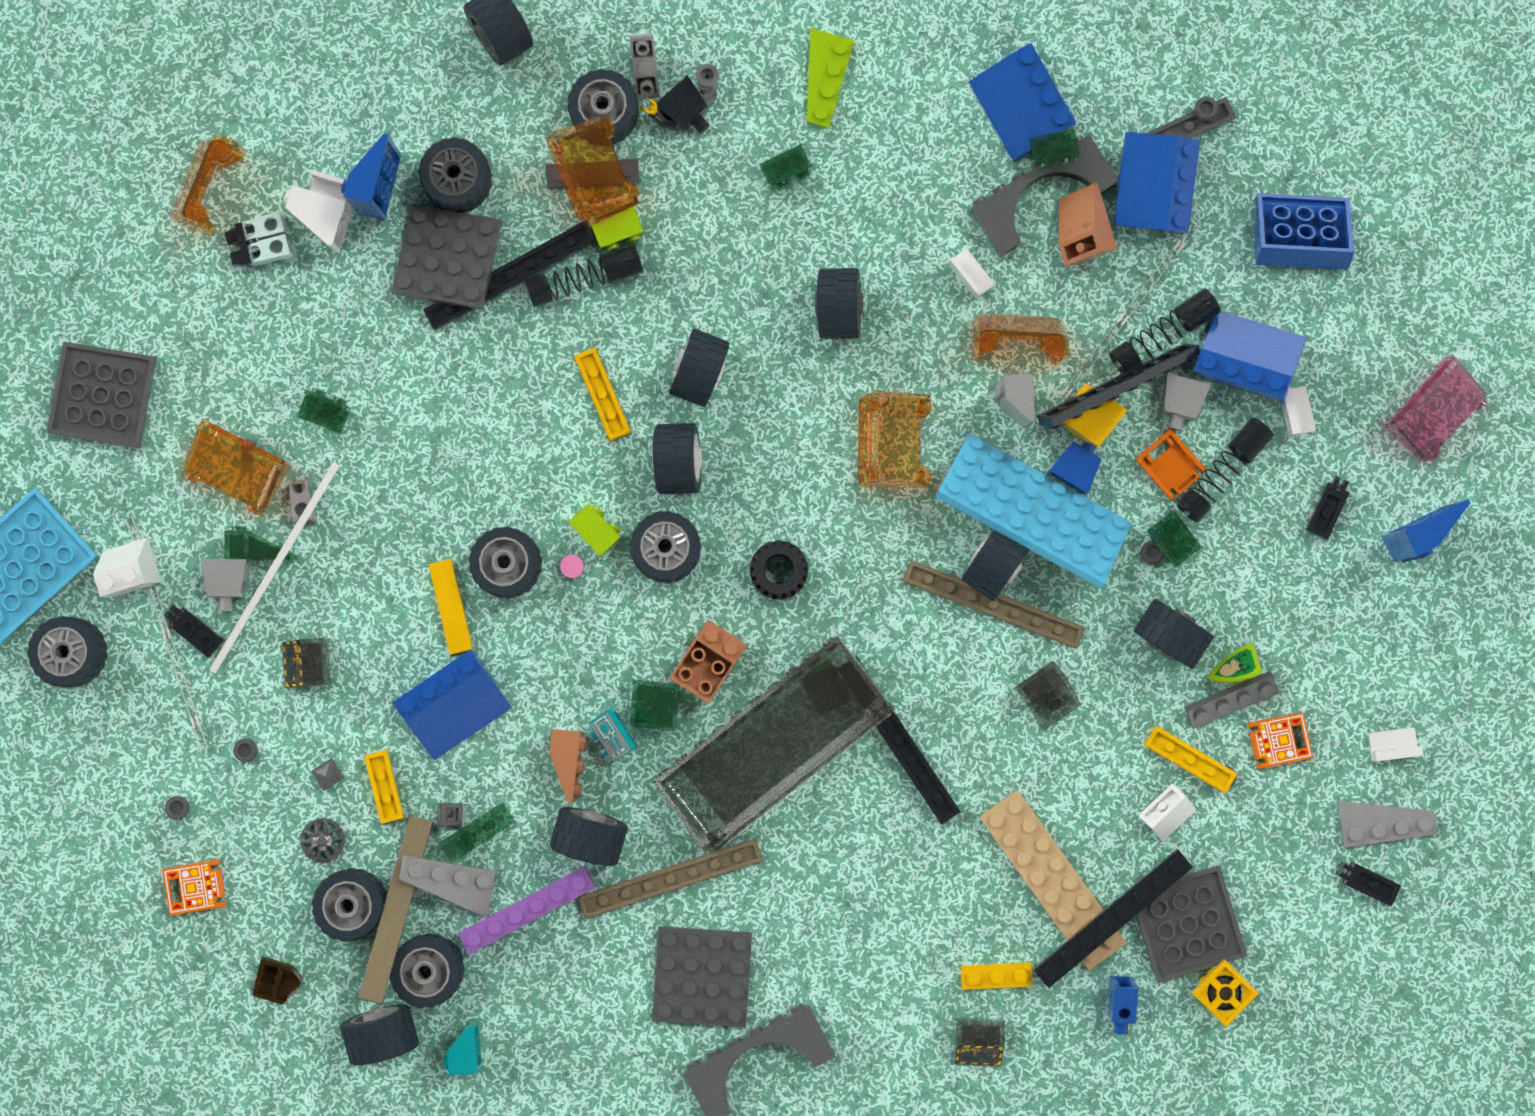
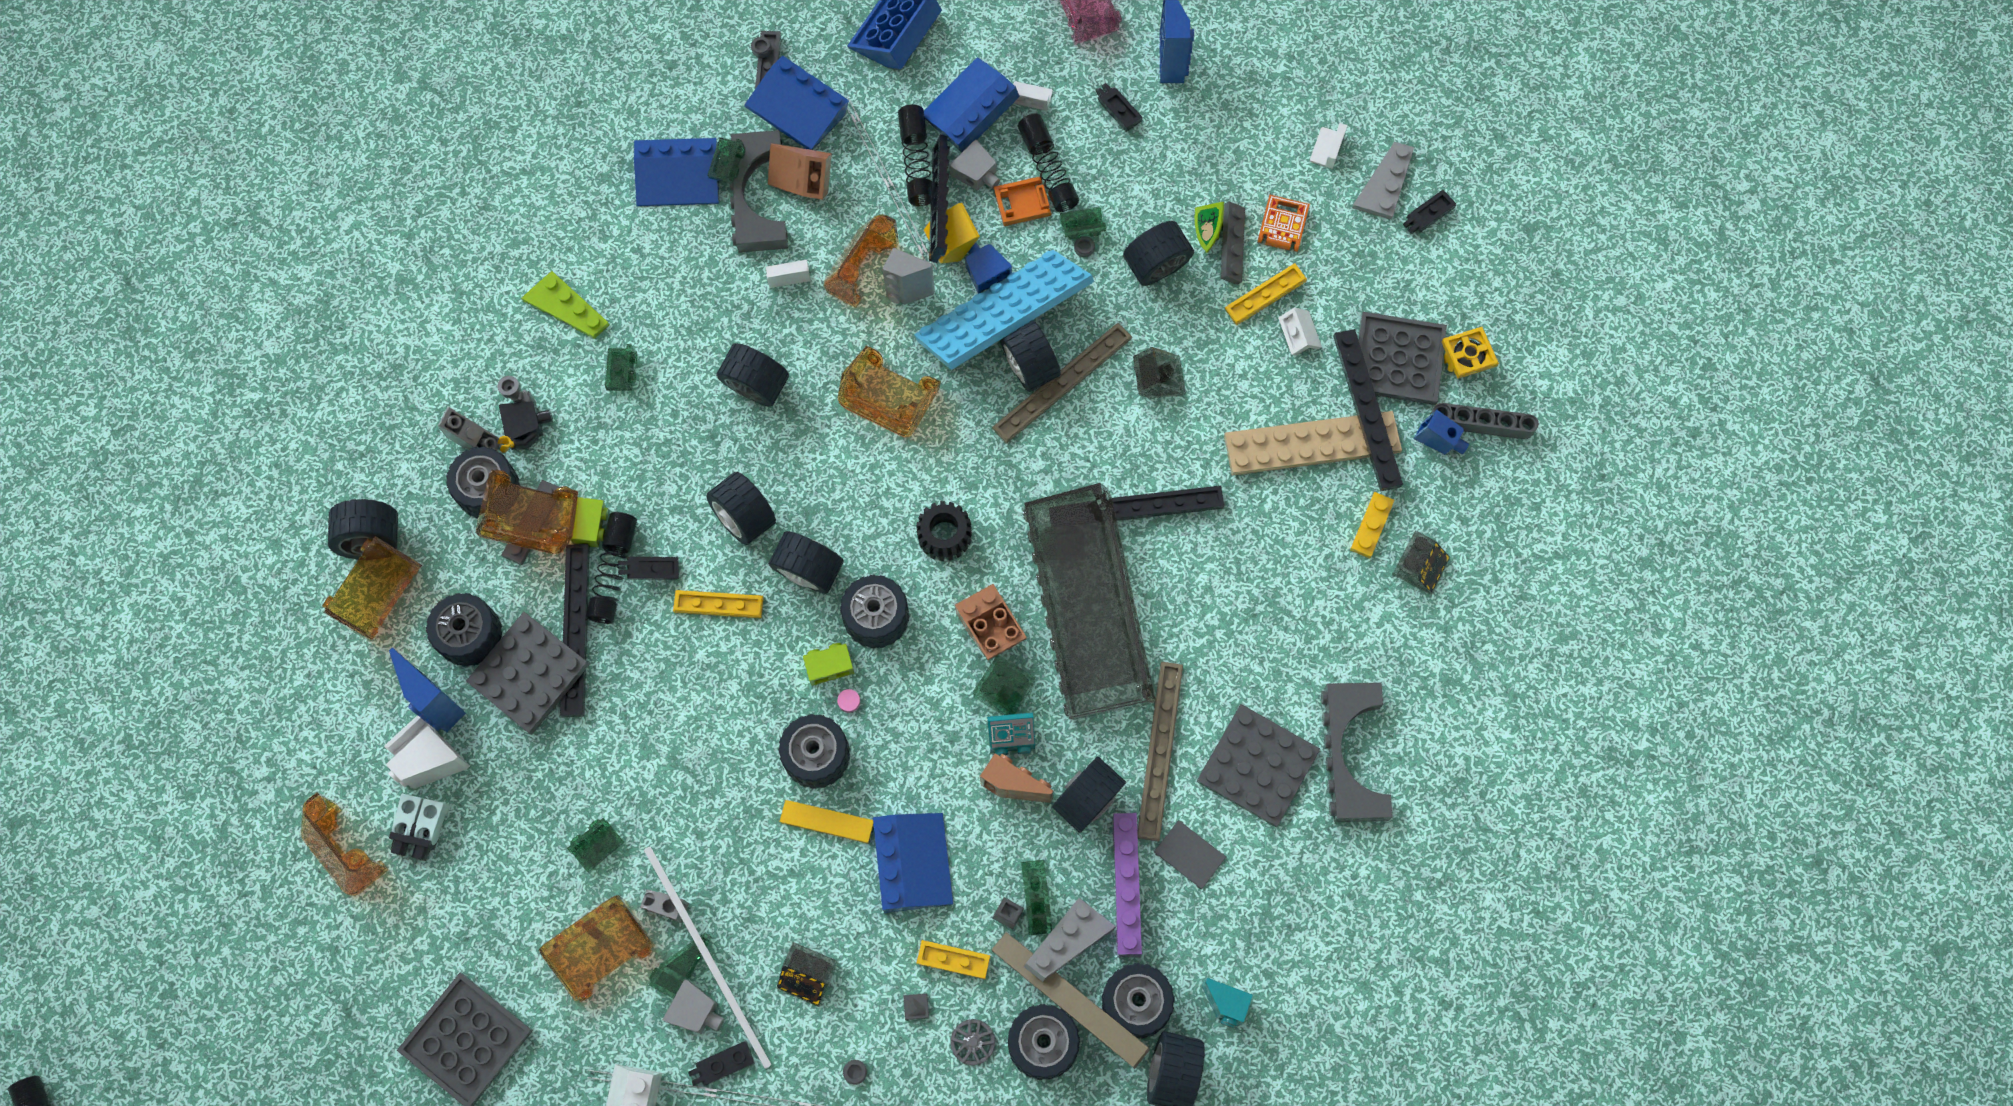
camera: 60 degrees left, 15 degrees down
(444, 69) = (371, 588): none -> clear orange windscreen
(587, 952) = (1190, 854): none -> dark grey piece
(601, 313) = (650, 568): none -> black hinge
(1166, 1047) = (1493, 419): none -> dark grey beam

